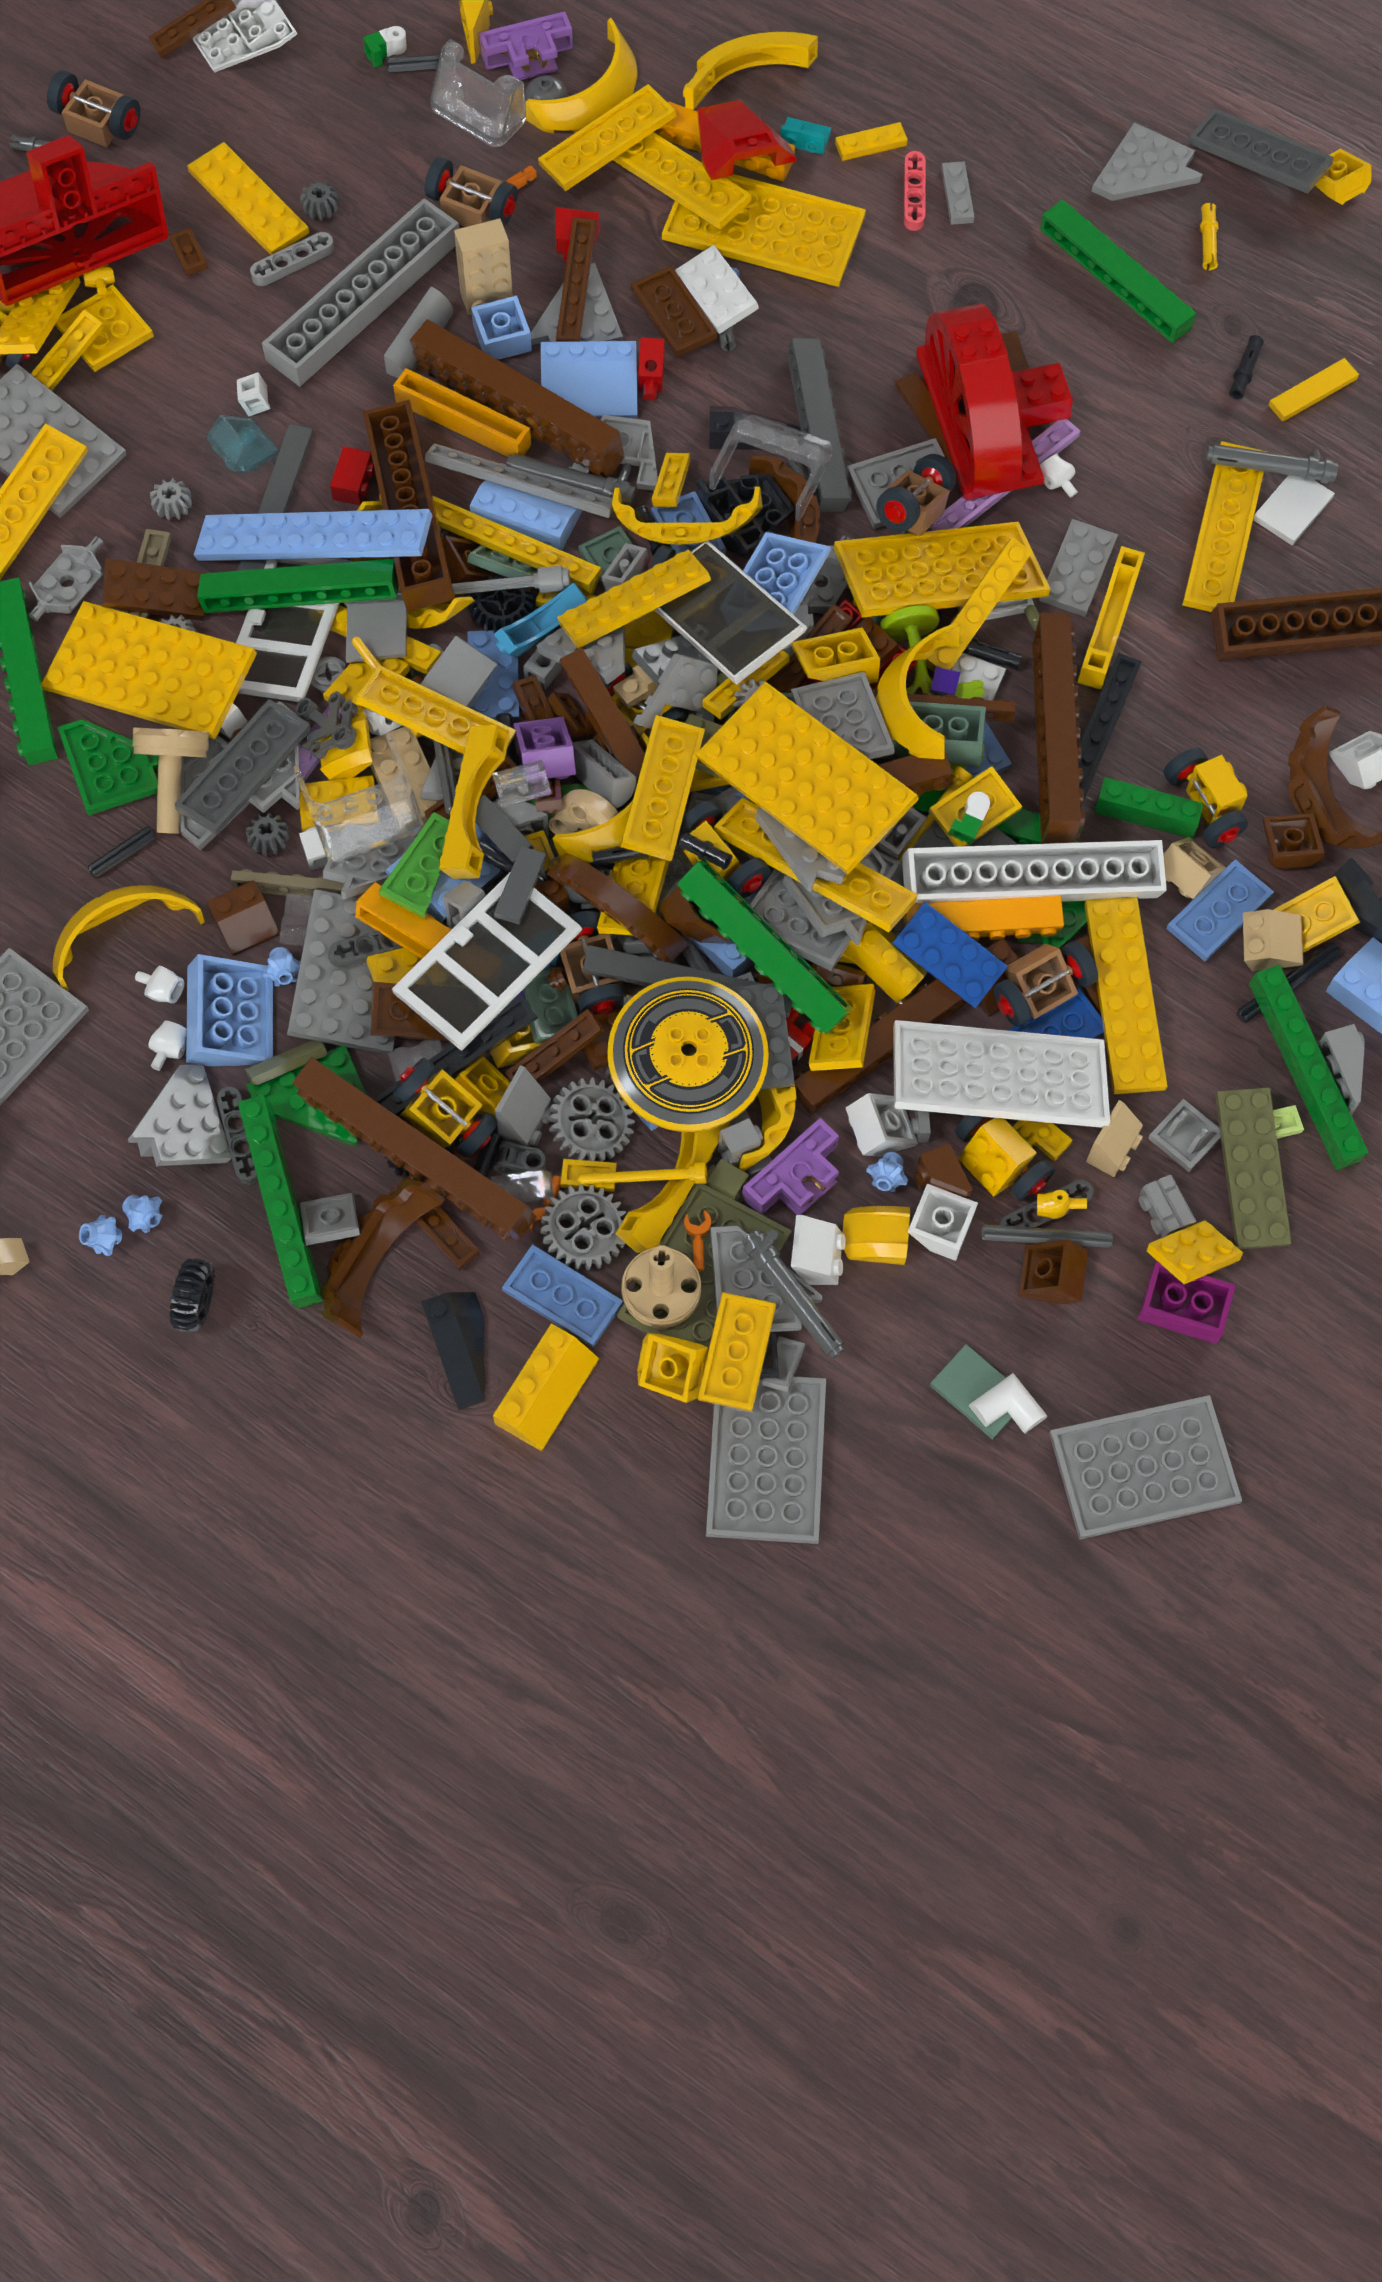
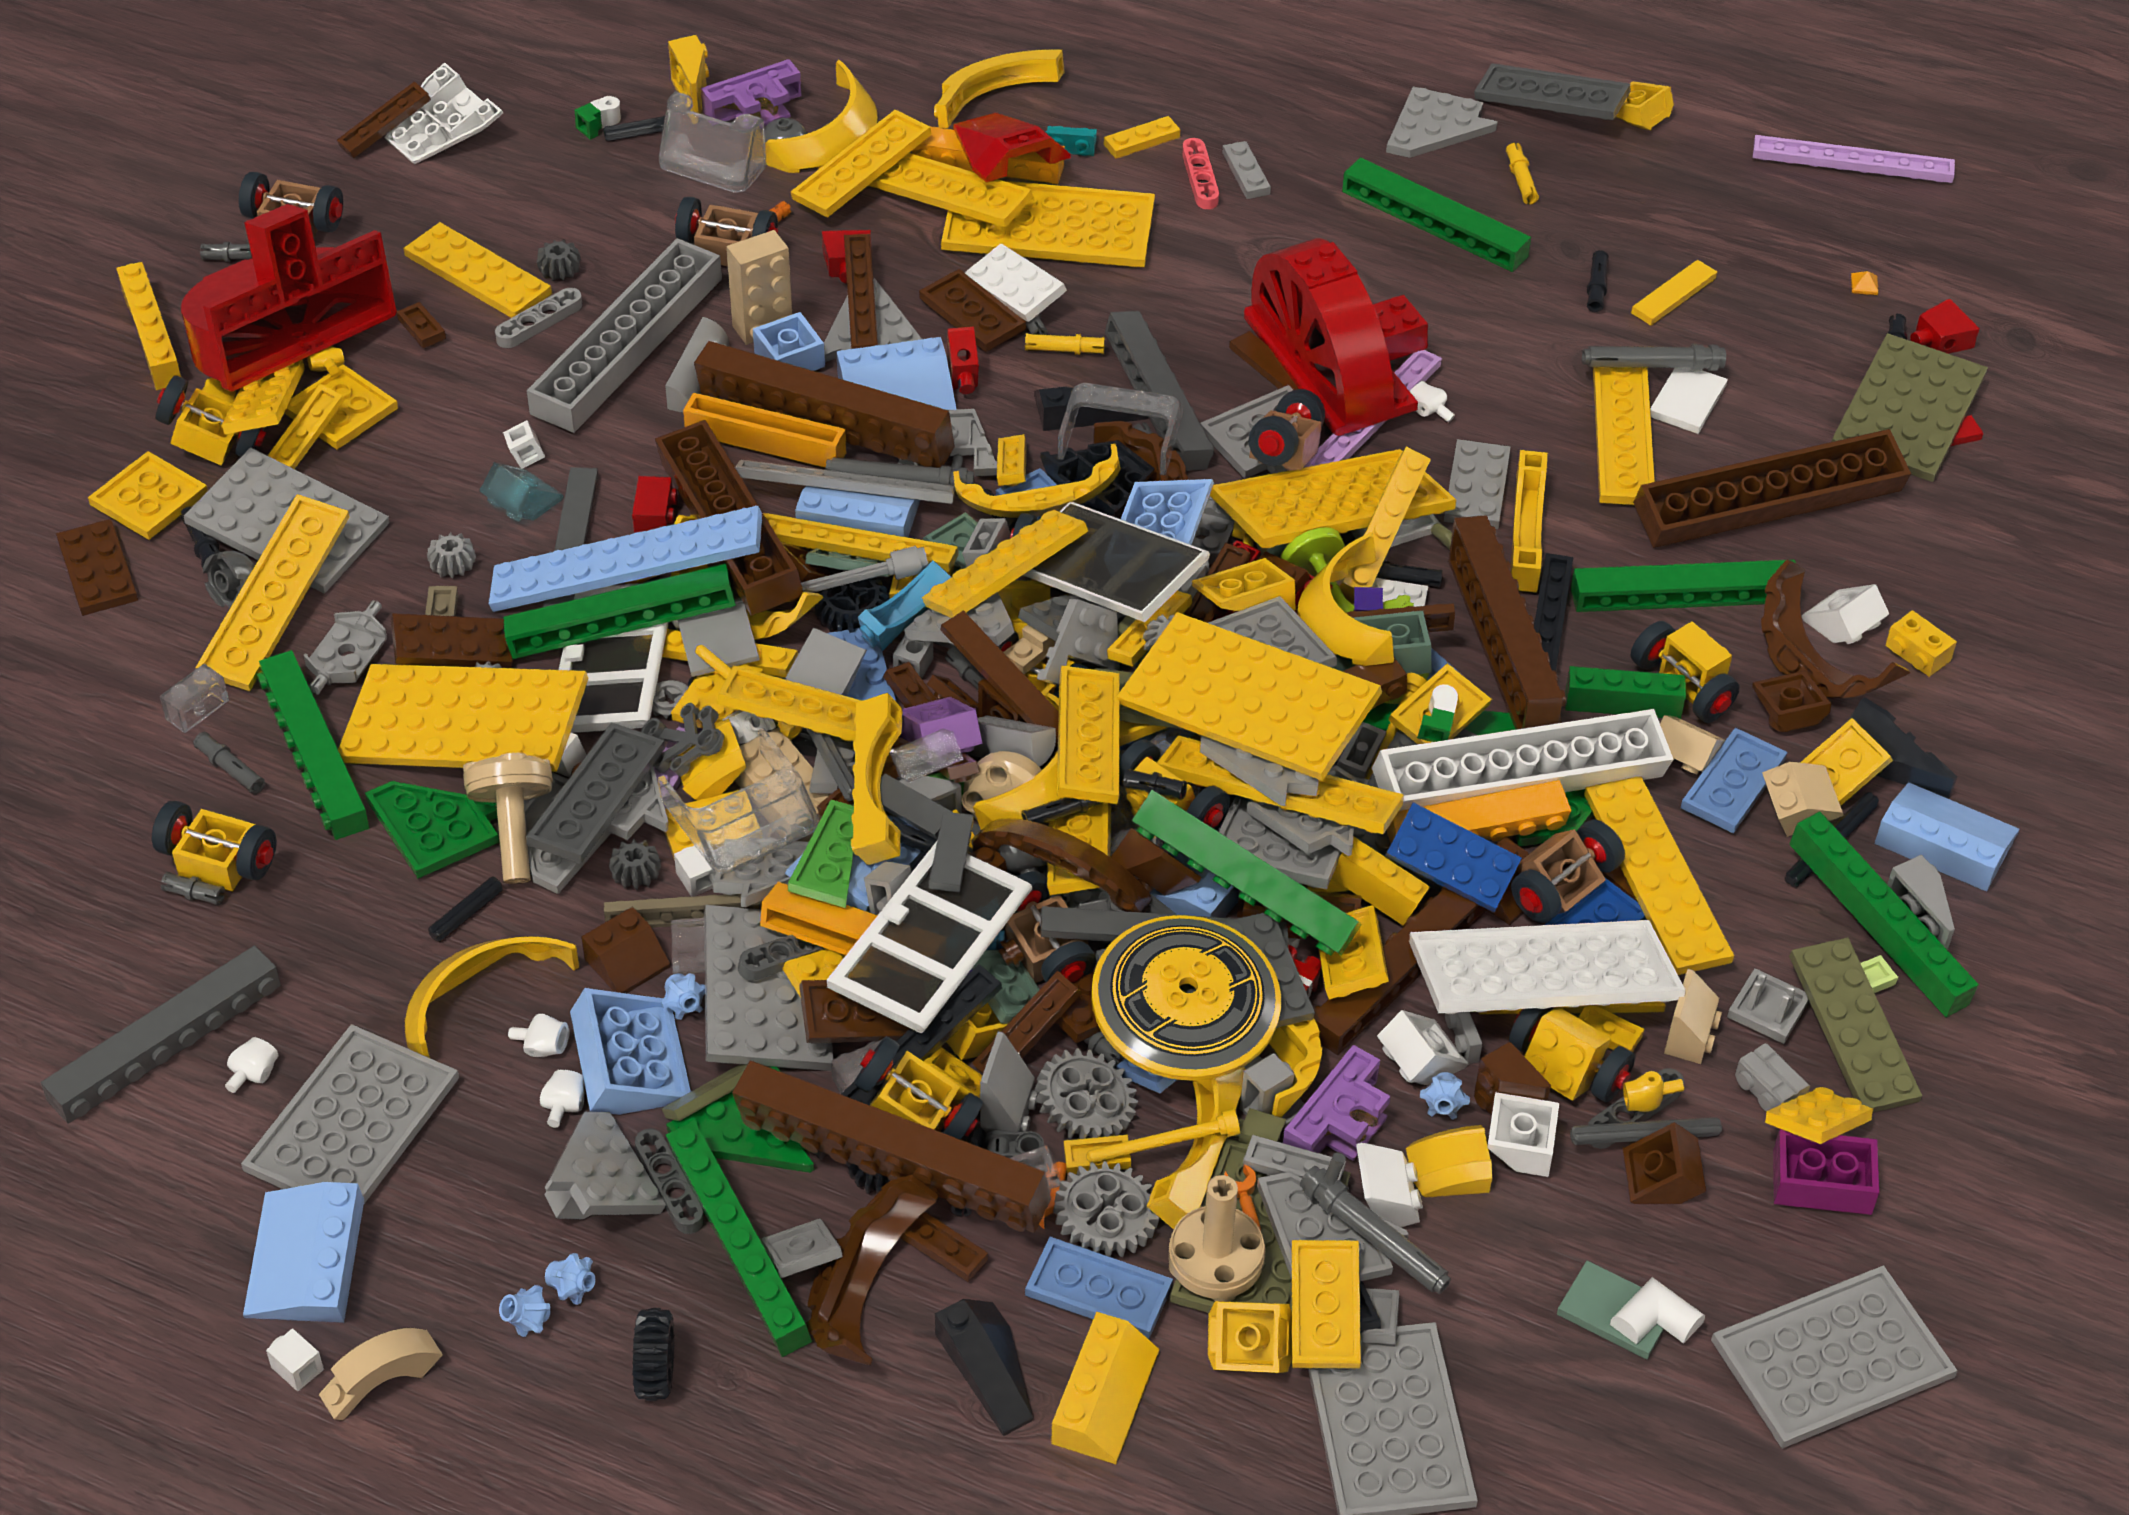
camera: 10 degrees left, 20 degrees down
(740, 1213) = (1276, 1158): none -> light grey plate
(748, 360) = (1065, 343): none -> yellow pin
(1224, 704) = (1672, 585): none -> green brick

